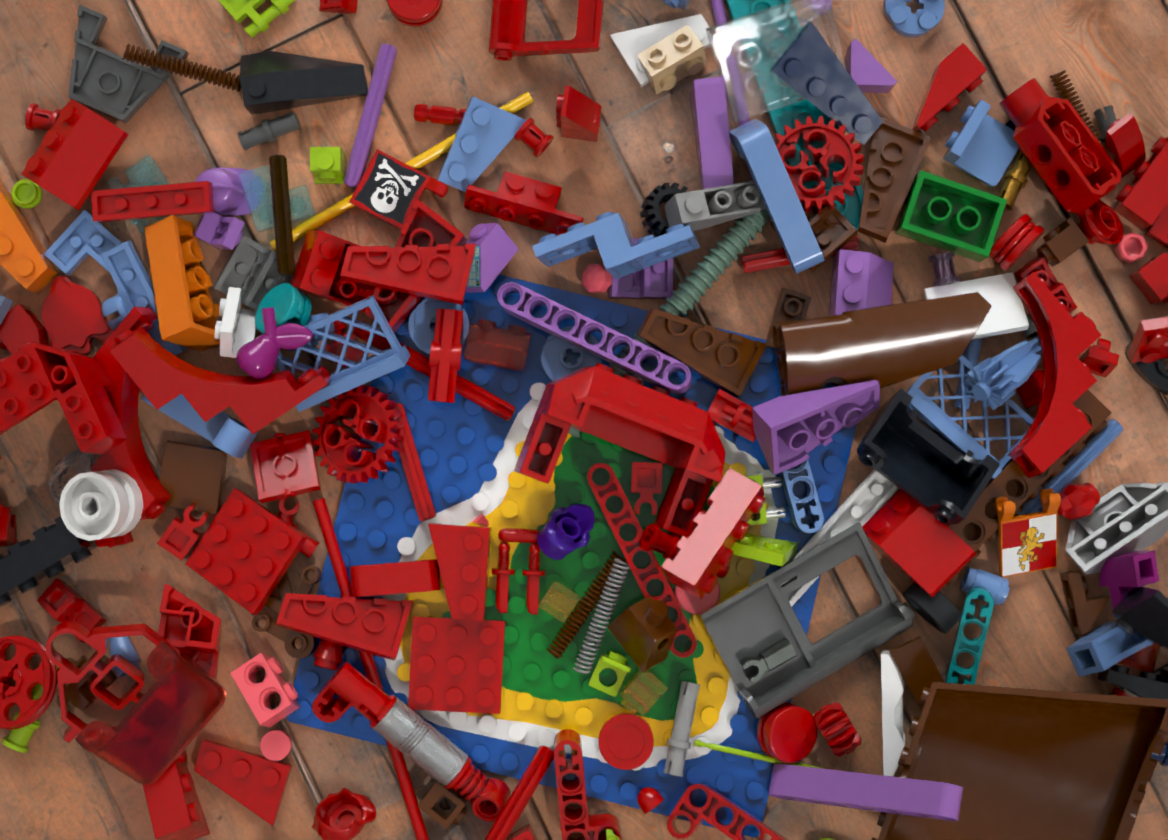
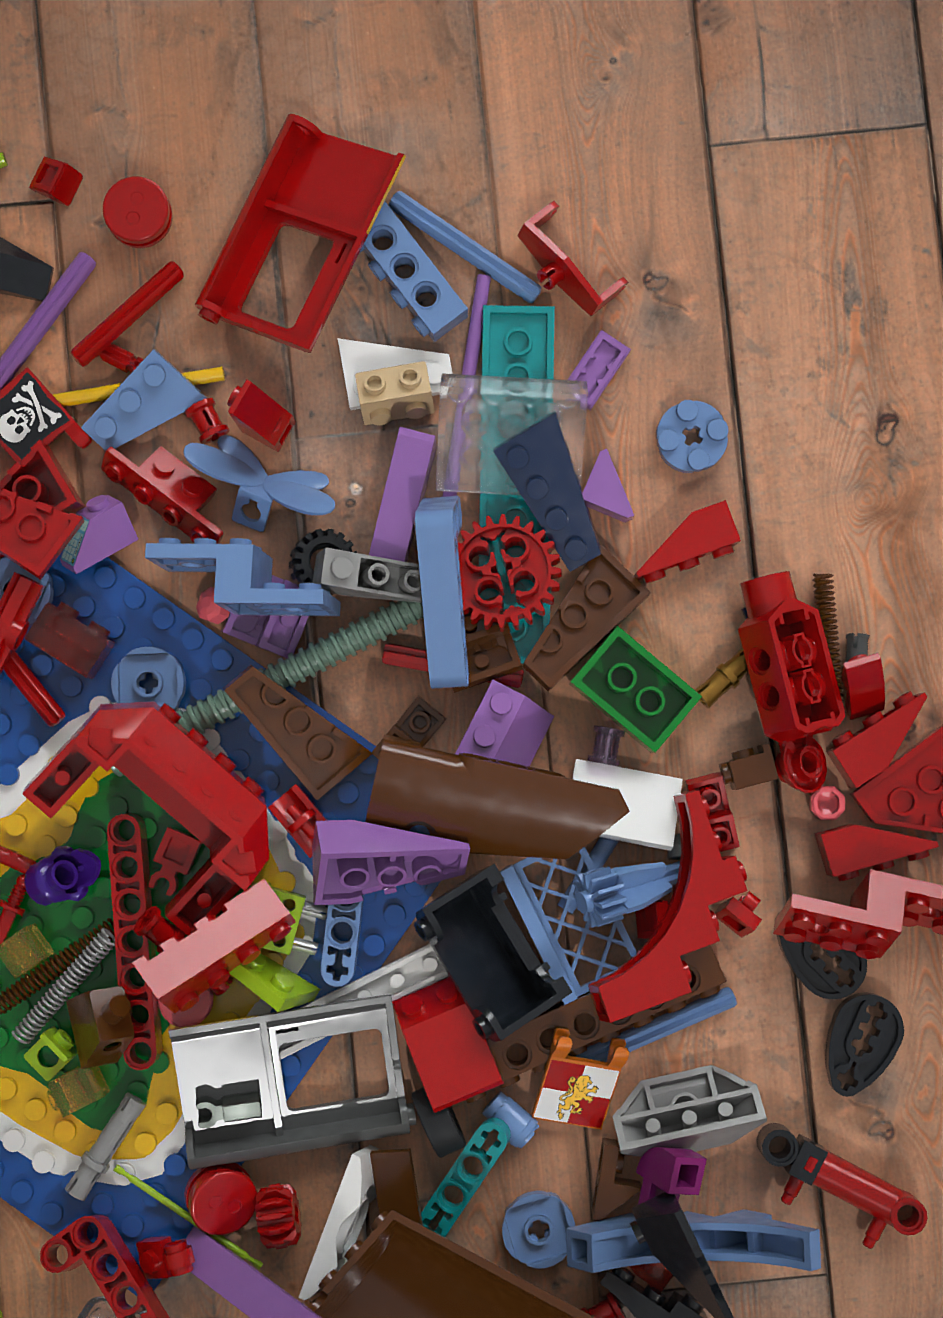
camera: 25 degrees right, 0 degrees up
(438, 77) = (127, 313): none -> red axle
(583, 327) = (162, 662): medium lavender beam -> none
(623, 163) = (239, 466): none -> medium blue piece
(626, 741) = (37, 1136): red piece -> none
(648, 799) = (37, 1211): red hinge -> none
(765, 794) = (164, 1258): none -> red plate
(981, 145) = (703, 623): medium blue bracket -> none
(1015, 242) = (696, 747): red head -> none
(1022, 659) = (520, 1217): none -> medium blue plate
(1078, 500) = (651, 1065): red rock -> none

